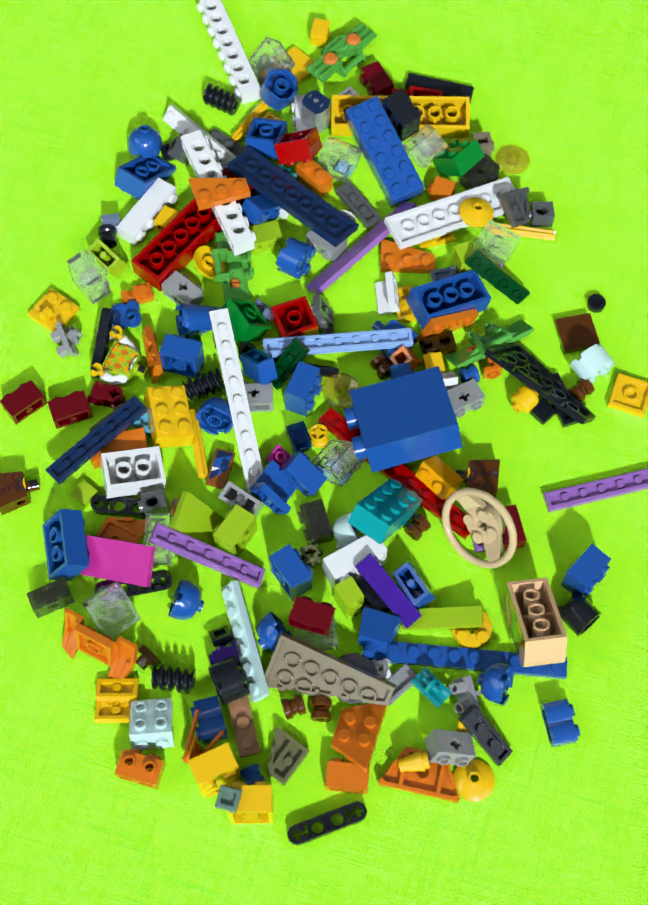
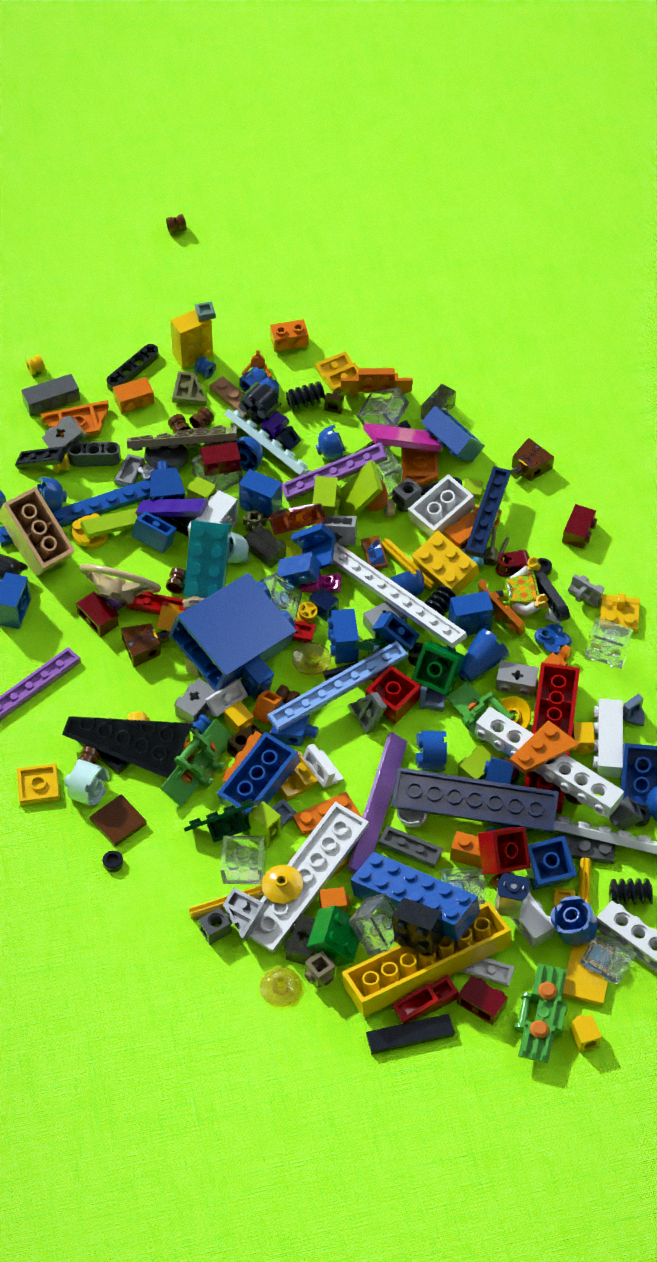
camera: 150 degrees right, 10 degrees down
(70, 409) = (536, 537): dark red brick -> none
(83, 383) = (546, 566): none -> black tile
(107, 234) = (624, 693): black wheel -> none
(108, 258) = (607, 671): lime brick -> none
(151, 724) = (302, 365): light aqua bracket -> none
(215, 769) = (231, 345): yellow brick -> none
(276, 525) = (296, 517): none -> clear red slope
(358, 733) = (139, 416): orange wing -> none
(415, 762) = (87, 416): yellow cone -> none
(420, 474) = (191, 601): none -> tan axle
(420, 709) = (94, 454): none -> dark grey beam
(431, 687) = (101, 472): teal hips -> none
(433, 880) = (35, 364): none -> yellow wheel
(435, 825) = (50, 394): none -> dark grey brick
(465, 693) = (68, 479): light grey hips -> none
(472, 790) = (31, 437): yellow dish -> none

